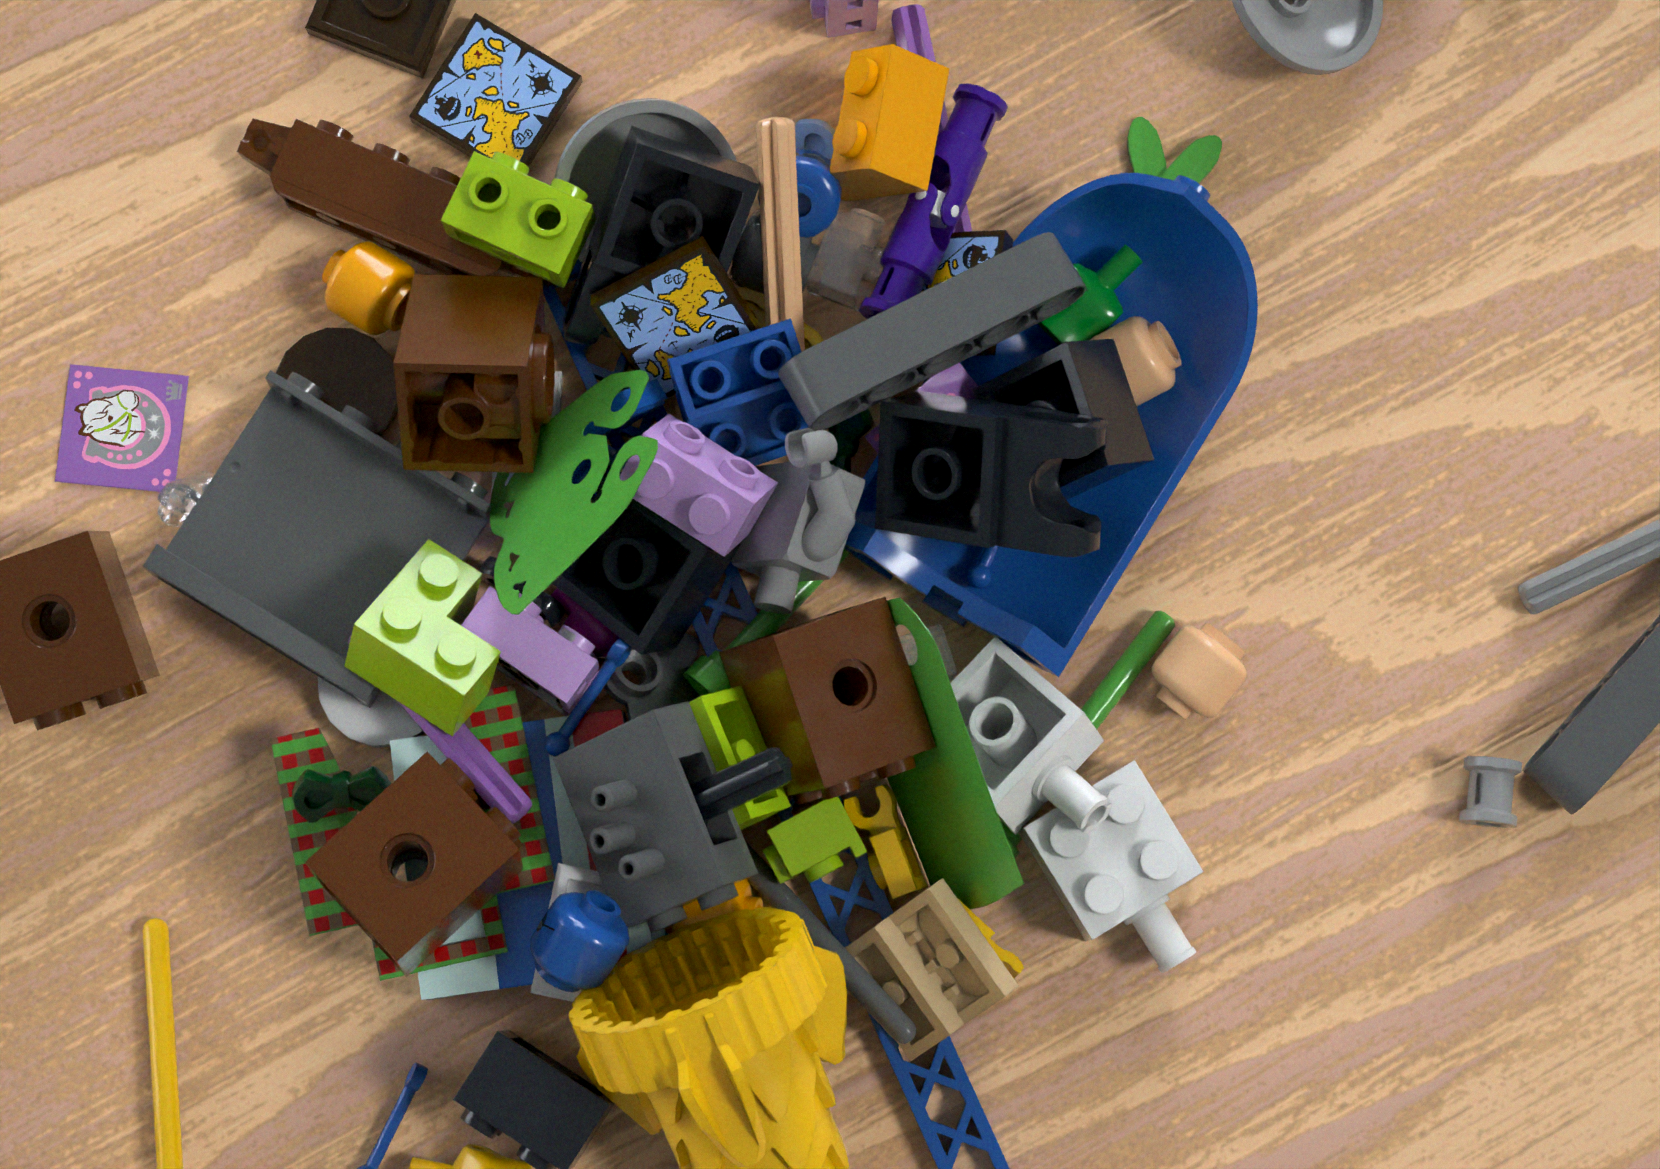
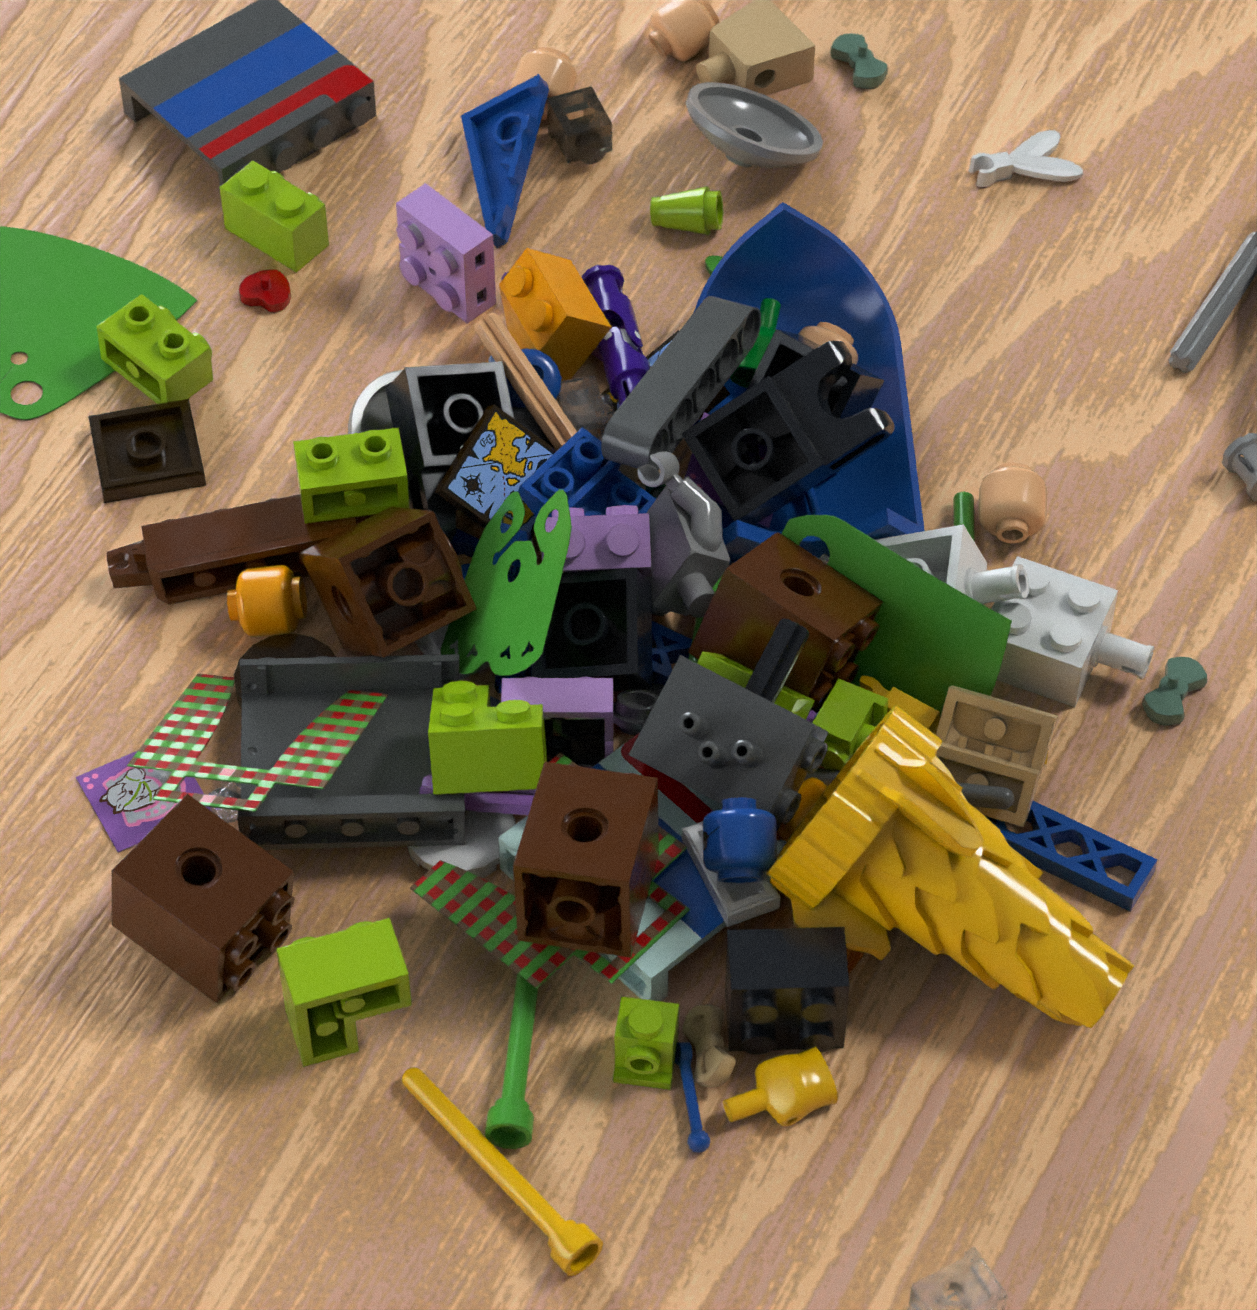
camera: 30 degrees left, 30 degrees down
(119, 816) = (339, 981): none -> lime brick
(210, 1038) = (510, 1120): none -> bright green piece
(260, 535) = (305, 763): none -> piece
(319, 794) = (475, 885): dark green piece -> none
(379, 1052) = (646, 1042): none -> lime brick
(430, 1112) = (703, 1029): none -> tan piece
(495, 94) = (259, 459): tile -> none
(558, 742) = (620, 762): blue hinge -> none
(1158, 48) = (689, 210): none -> lime cone
(1213, 986) = (1165, 703): none -> sand green piece
(1581, 215) = (1028, 160): none -> white piece

